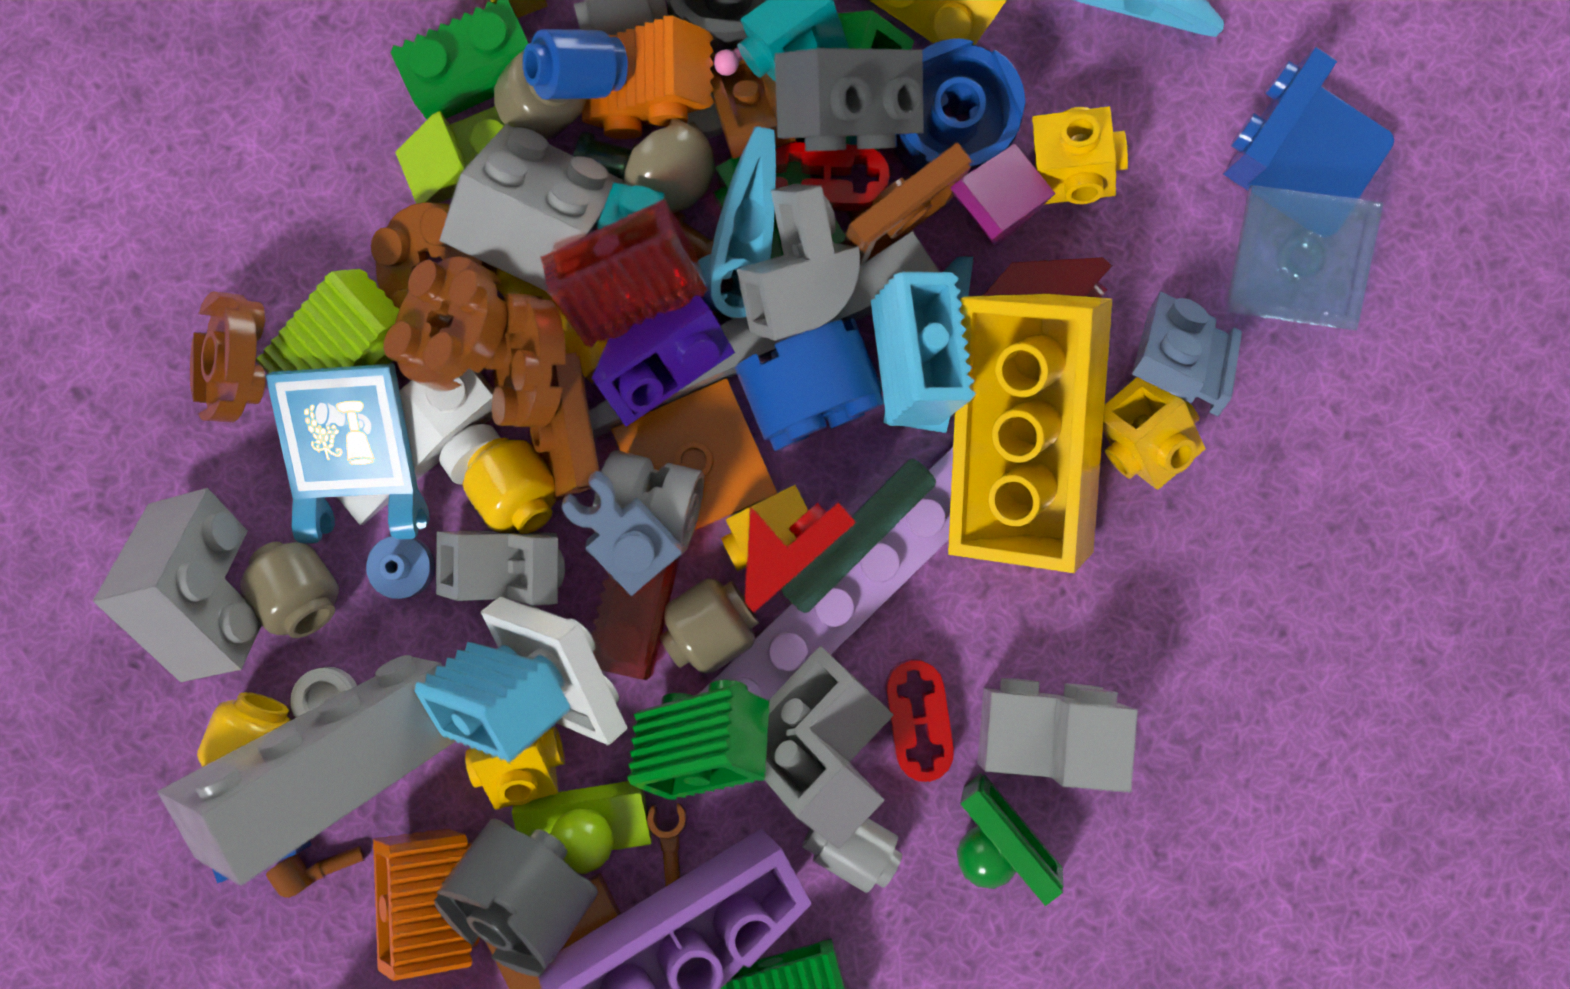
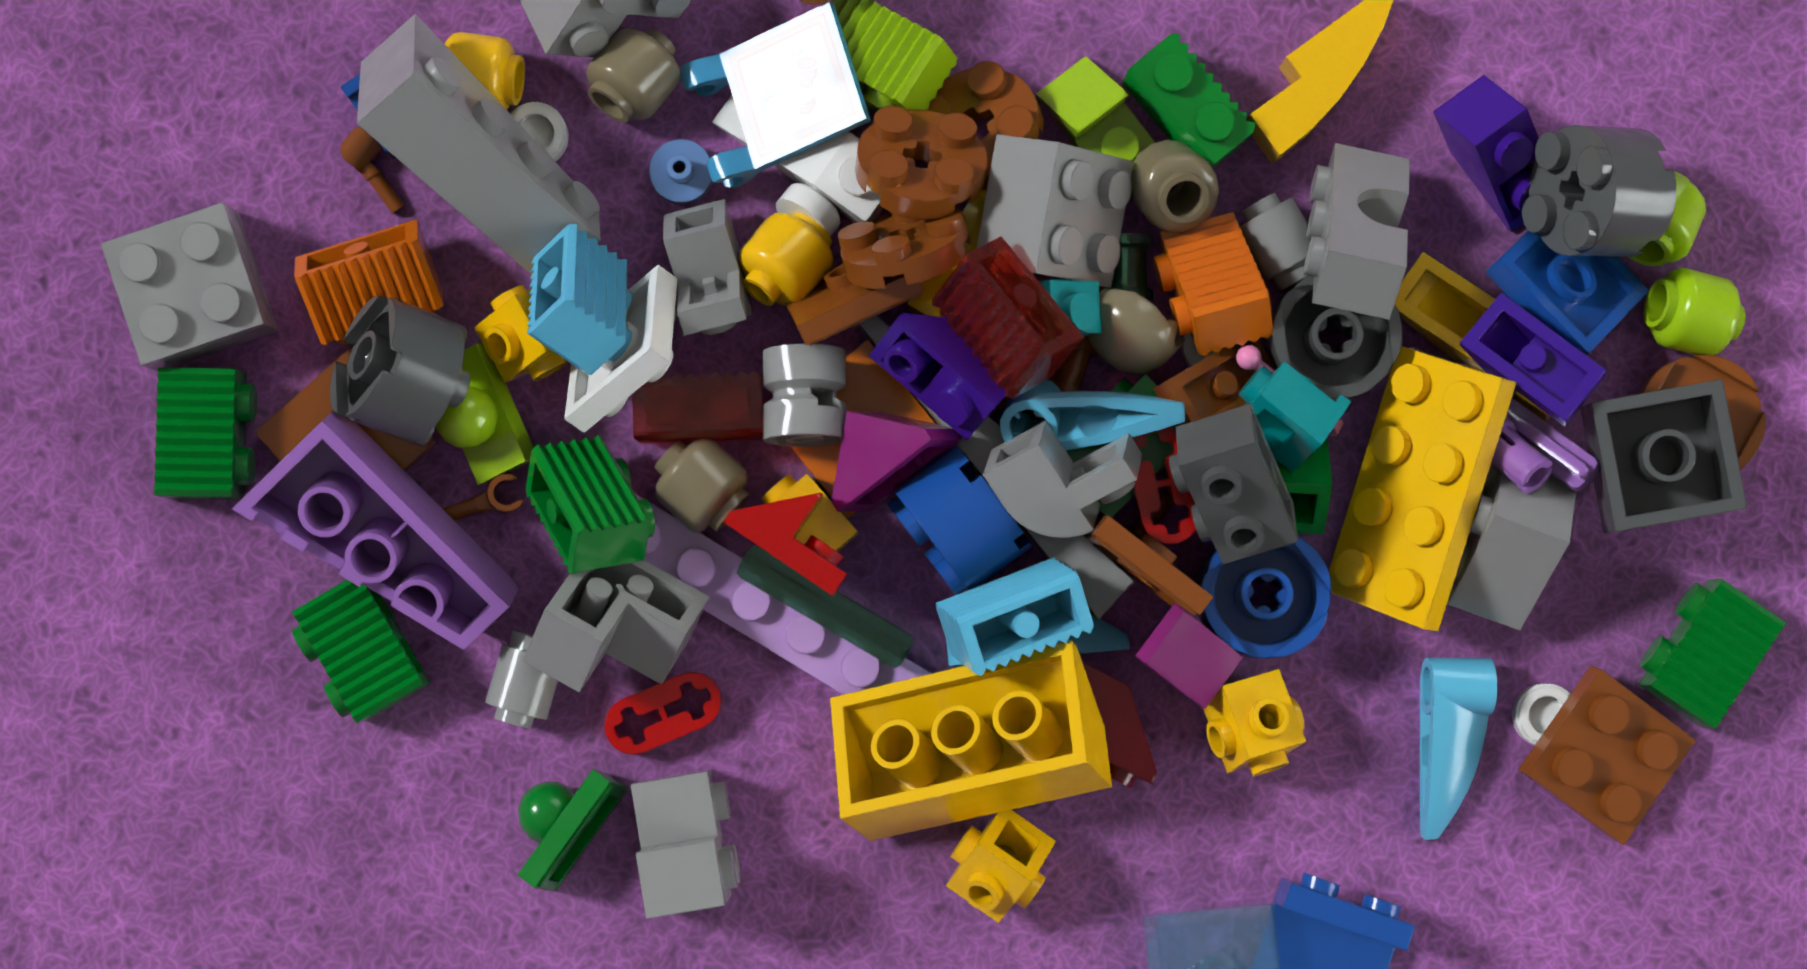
camera: 75 degrees right, 0 degrees up
(575, 64) = (1199, 216): blue brick -> none
(626, 540) = (759, 386): sand blue plate -> none
(726, 440) = (881, 454): none -> magenta slope
(1187, 353) = (1087, 880): sand blue plate -> none

